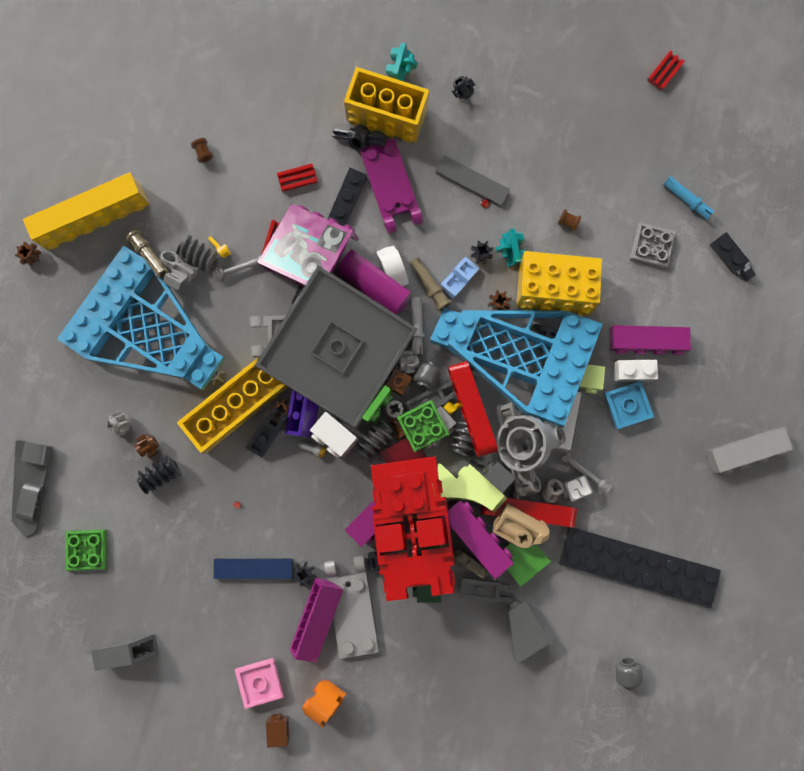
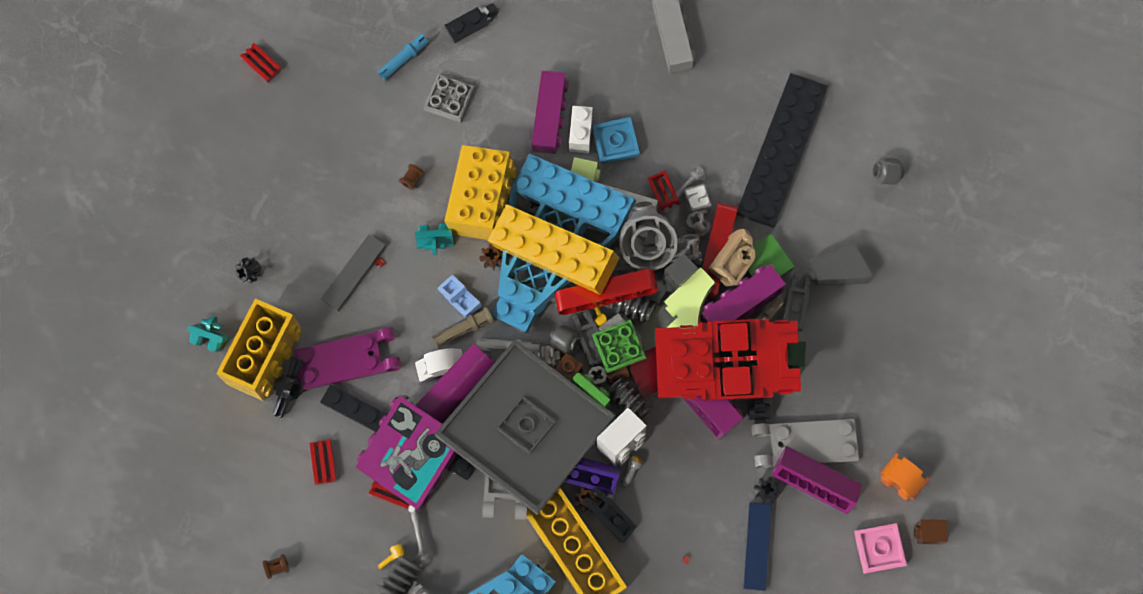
camera: 80 degrees left, 10 degrees down
(481, 258) = (434, 264): black gear -> none
(506, 355) = (553, 249): none -> yellow brick
(570, 461) = (668, 203): none -> red tile

